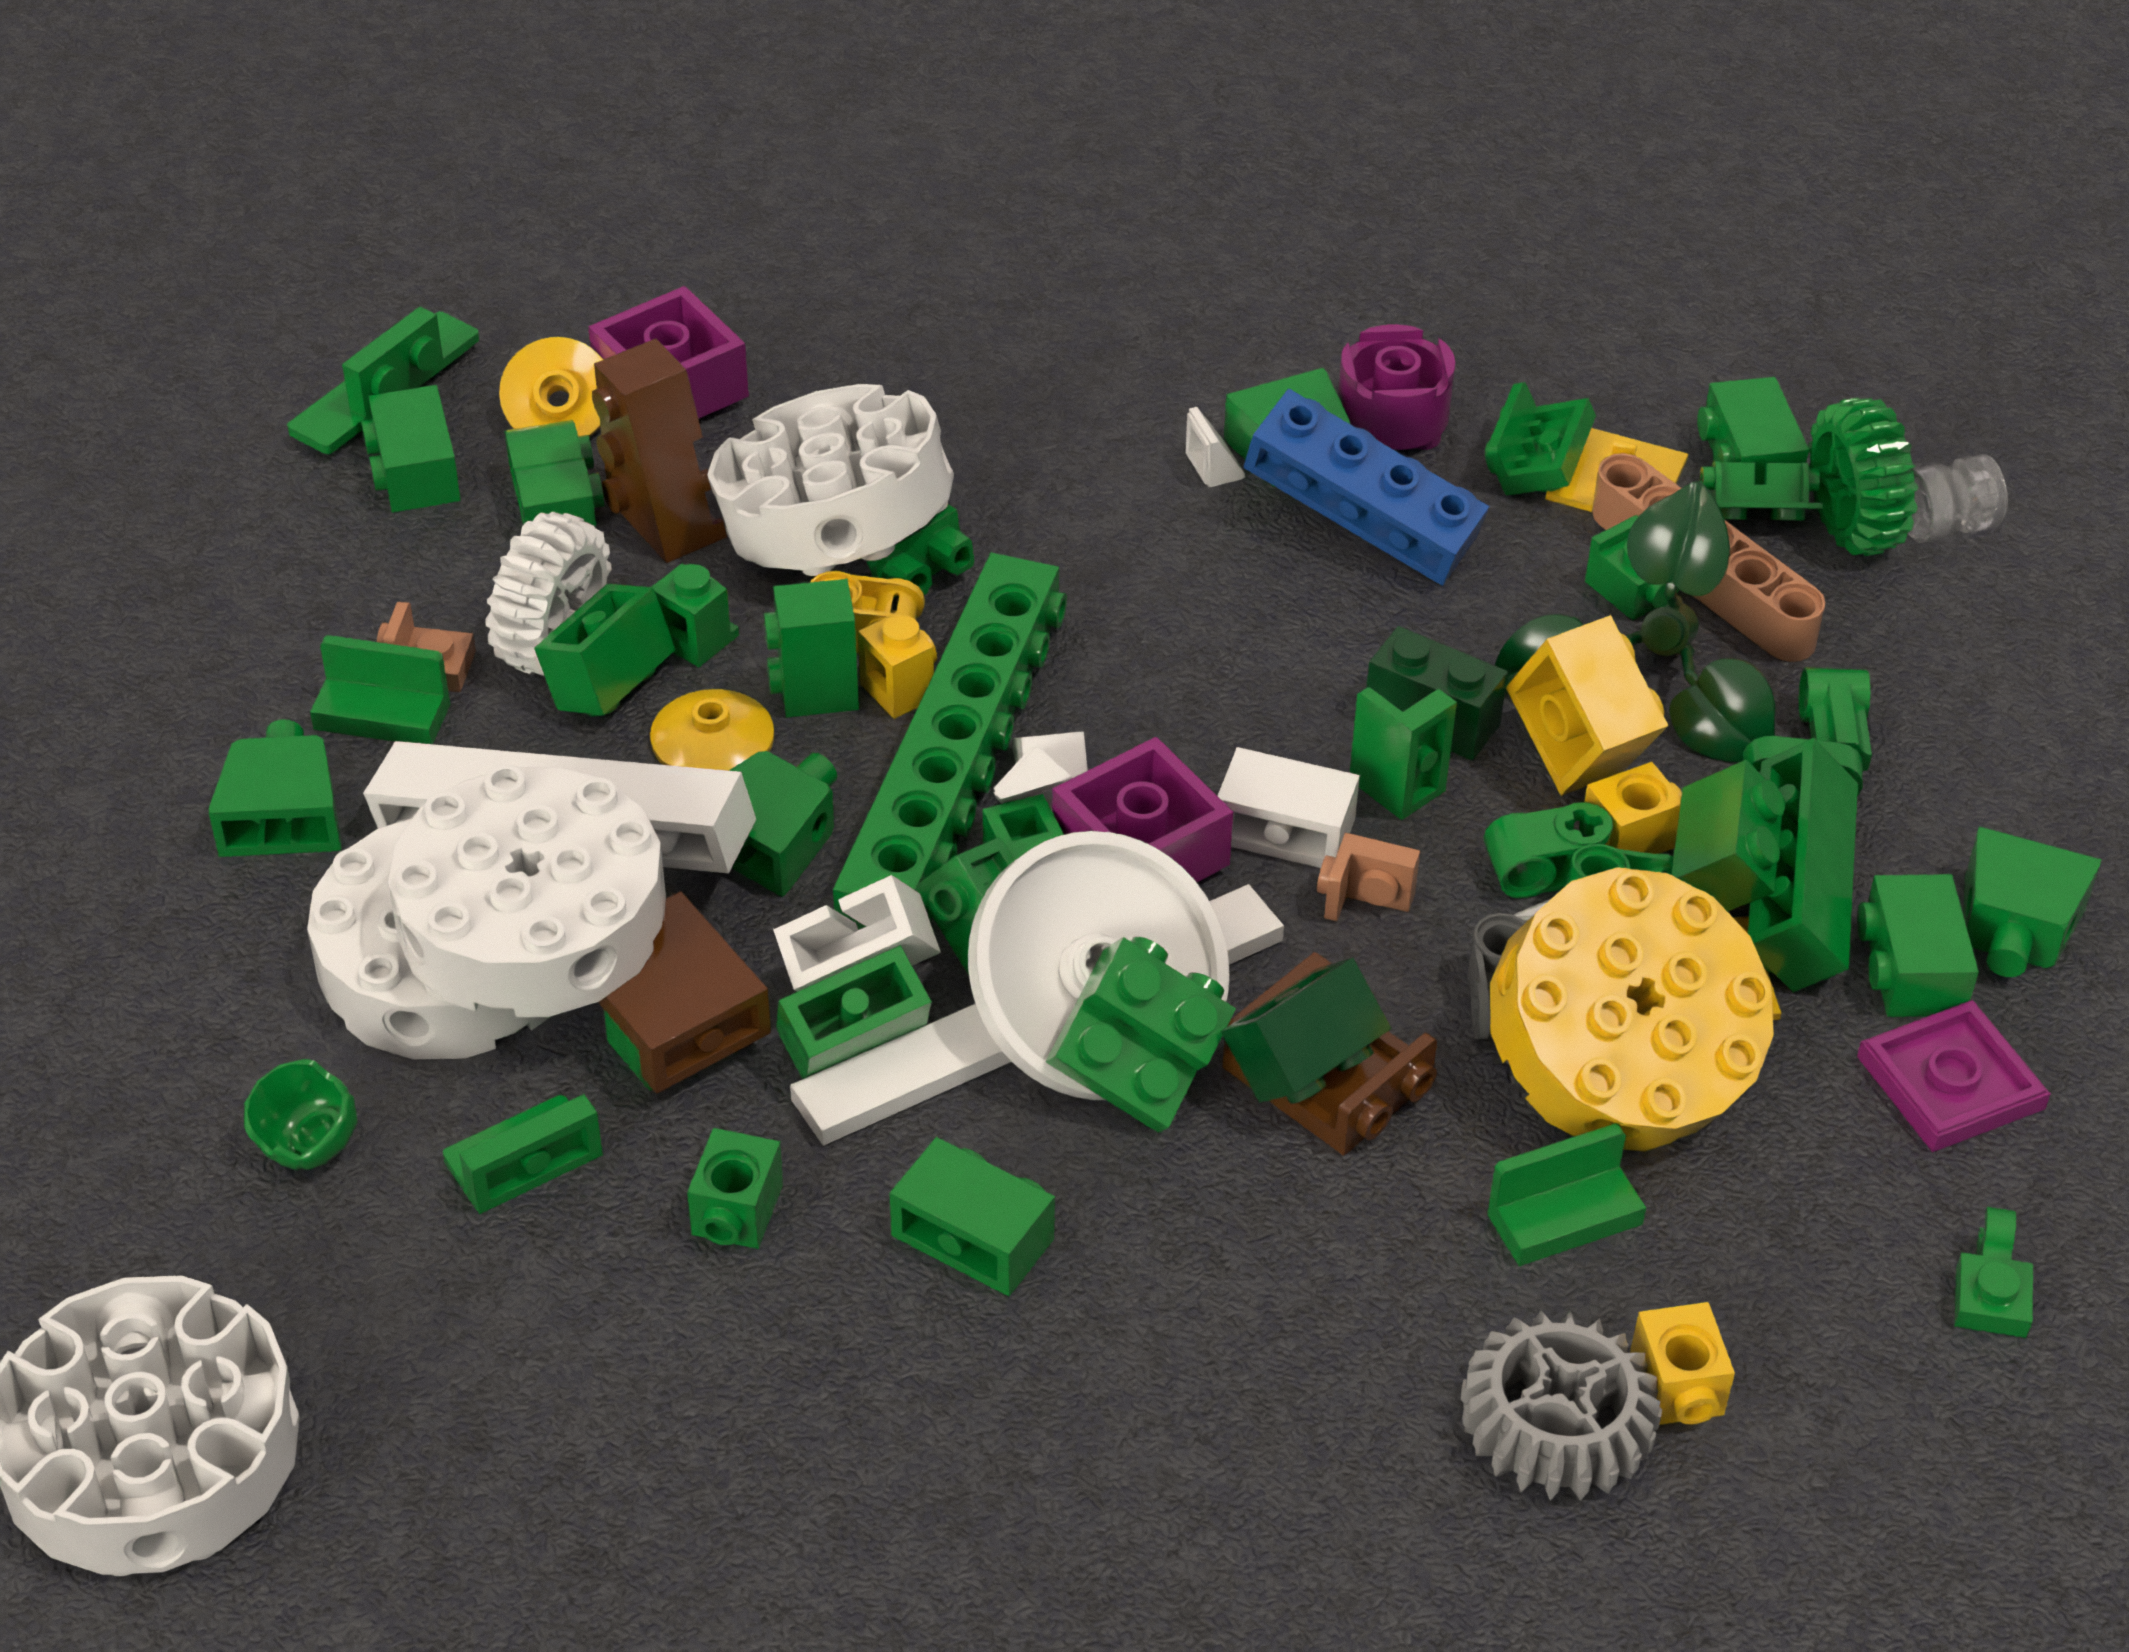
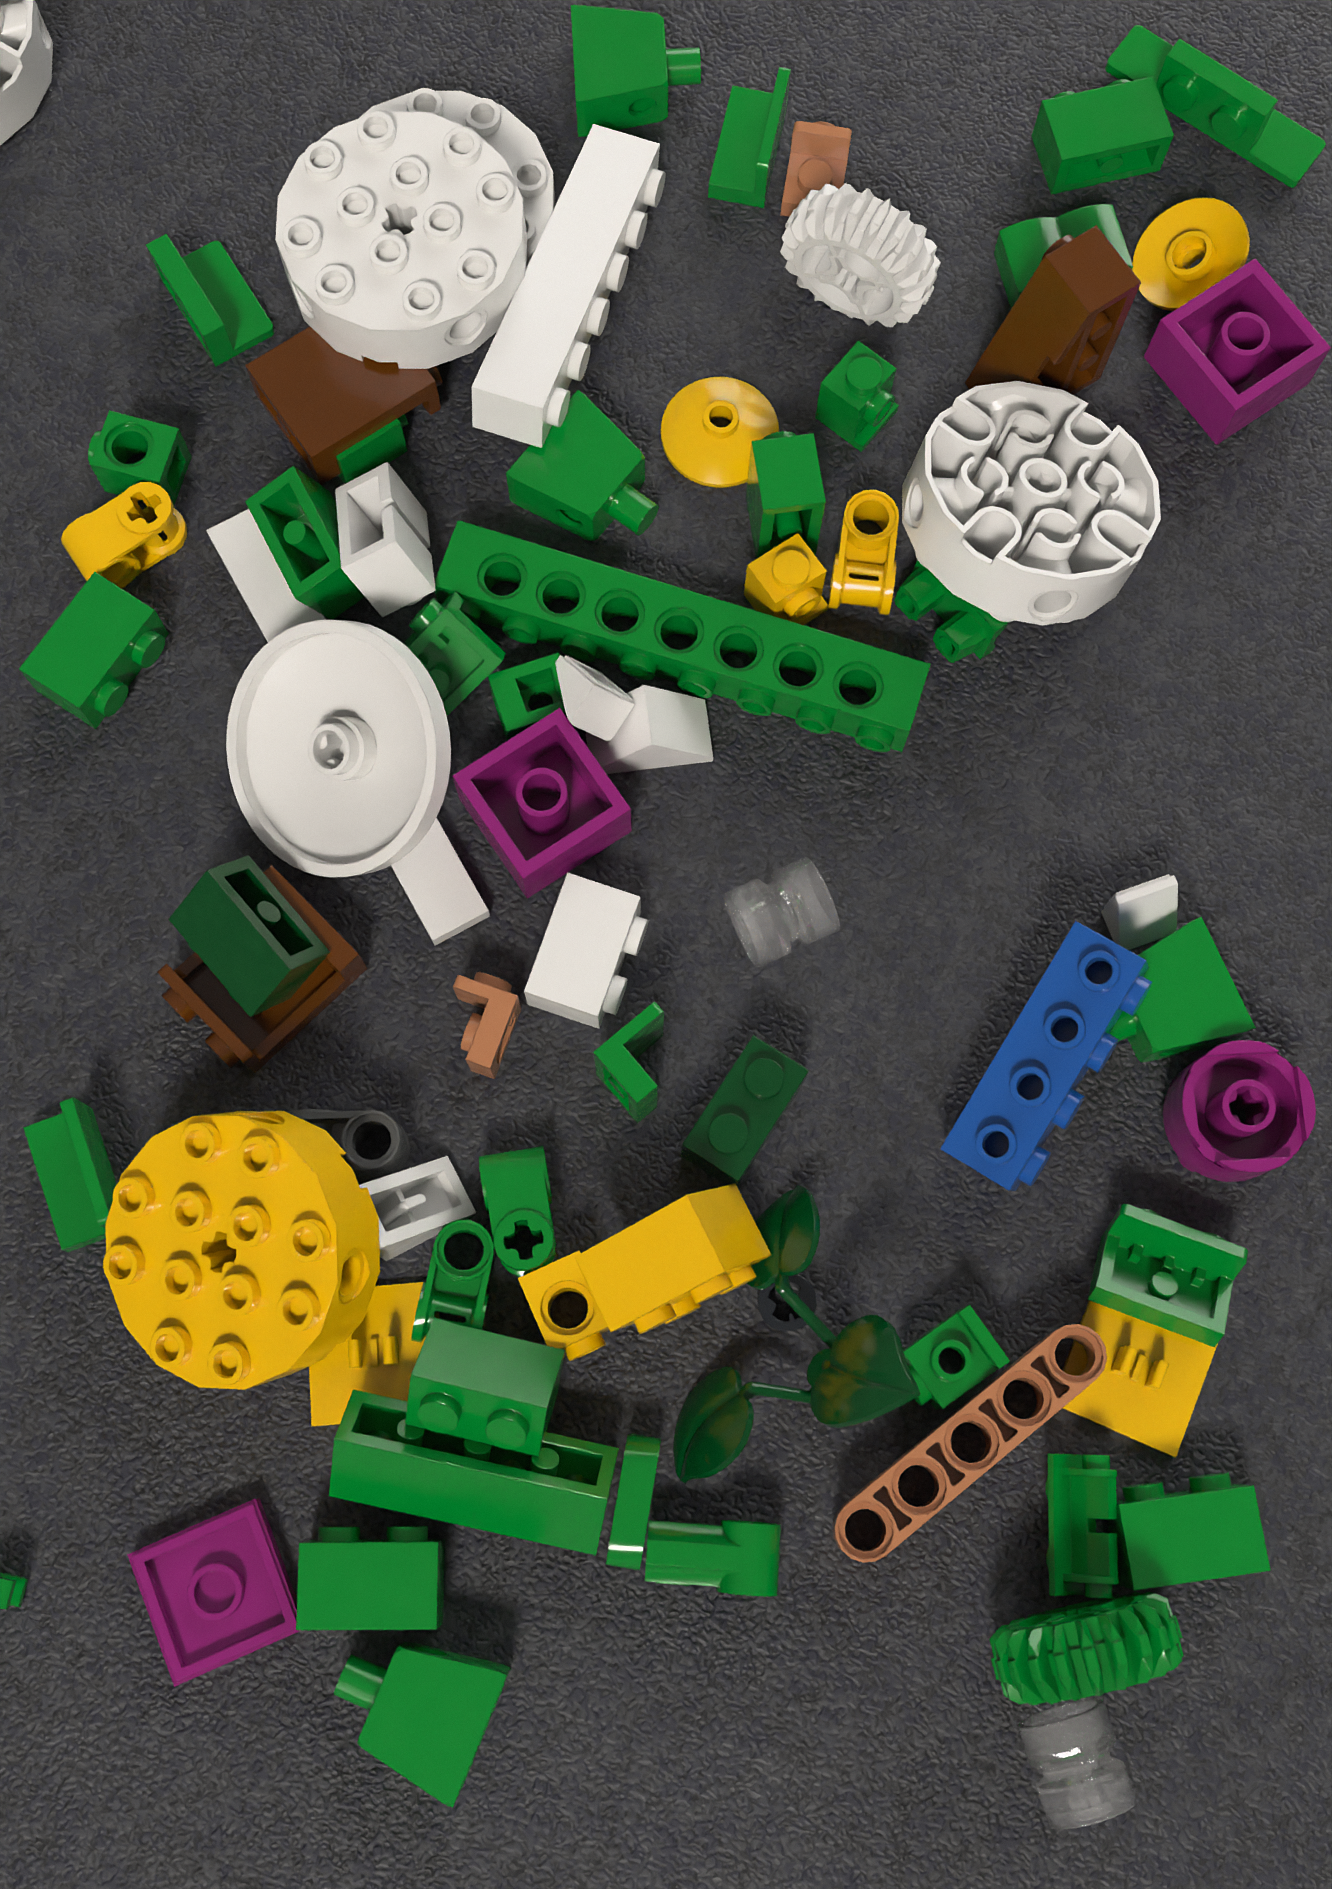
camera: 90 degrees right, 30 degrees up
(300, 1115) = (237, 123): green hair -> none
(605, 649) = (793, 314): green brick -> none
(832, 1196) = (118, 537): none -> yellow piece
(1141, 1031) = (265, 788): green plate -> none
(1237, 666) = (782, 911): none -> clear wheel

